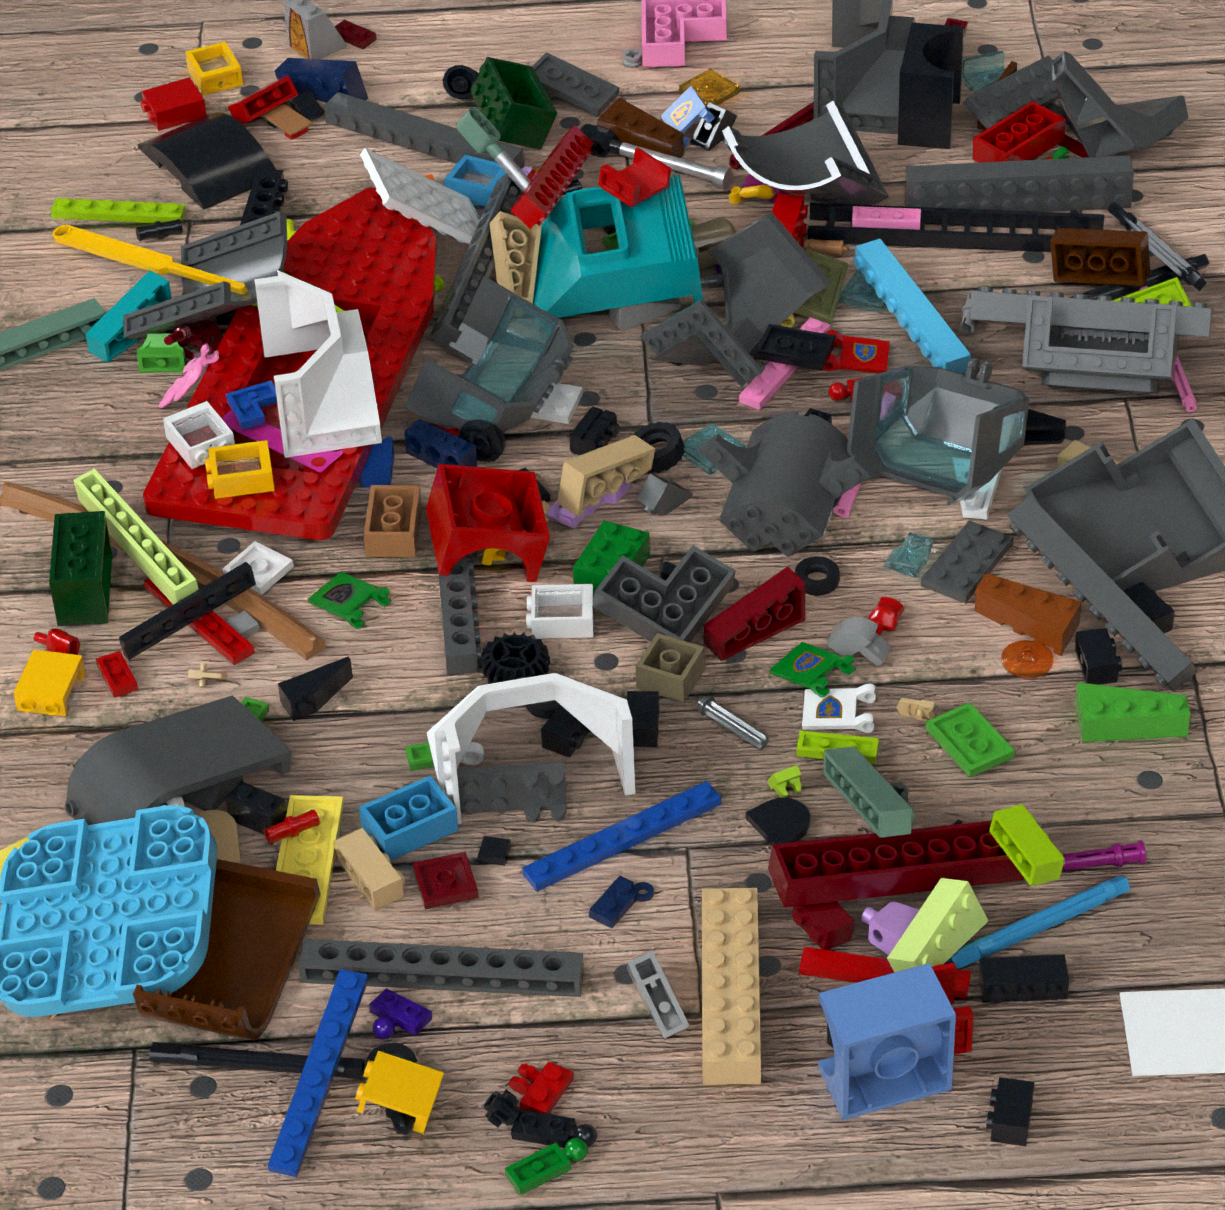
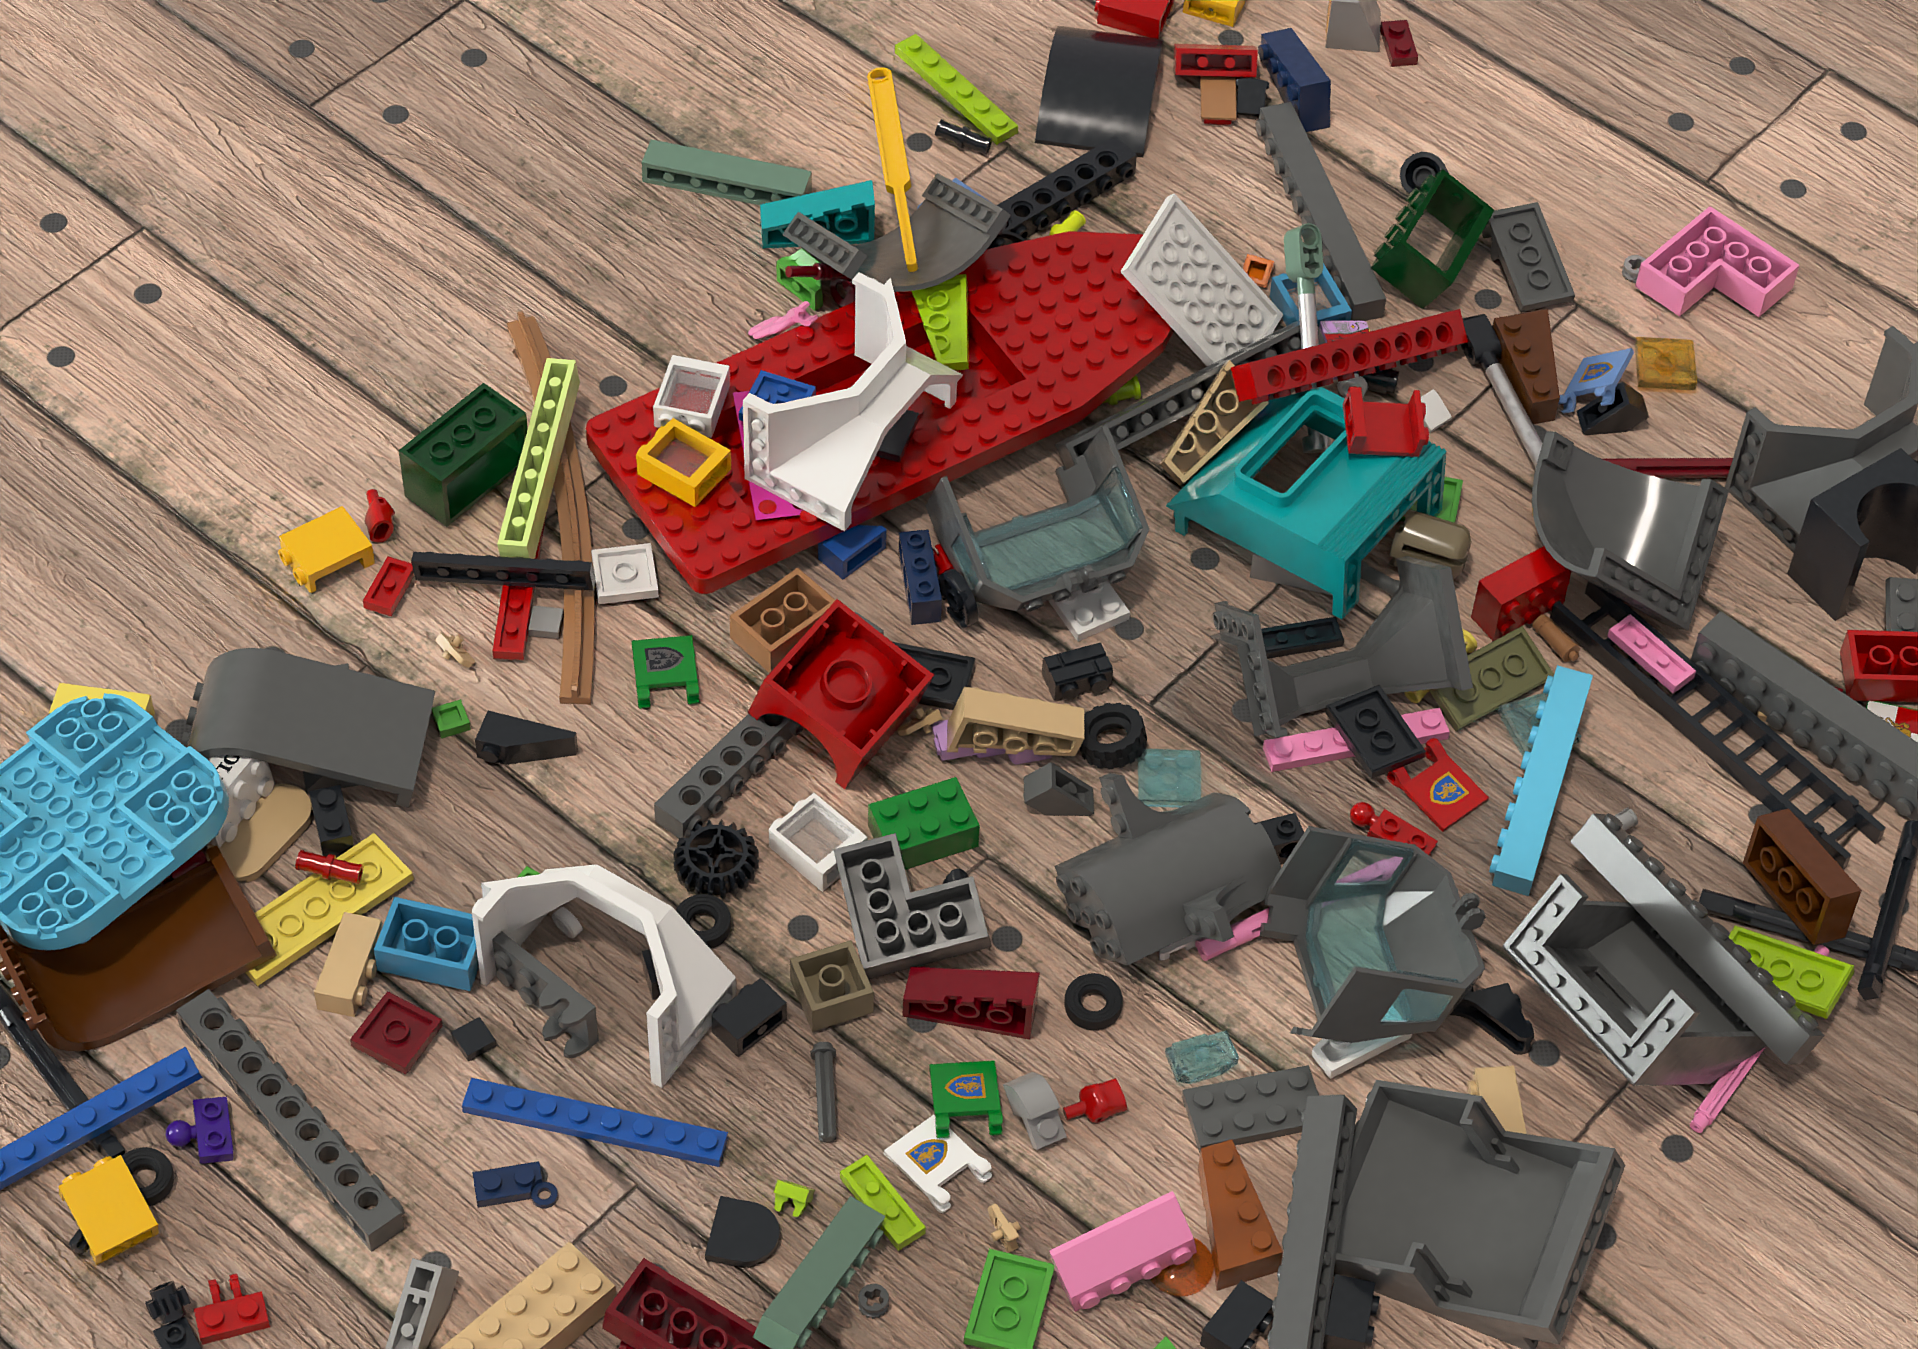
camera: 40 degrees right, 10 degrees up
(1003, 663) = (1123, 1252): none -> bright pink slope

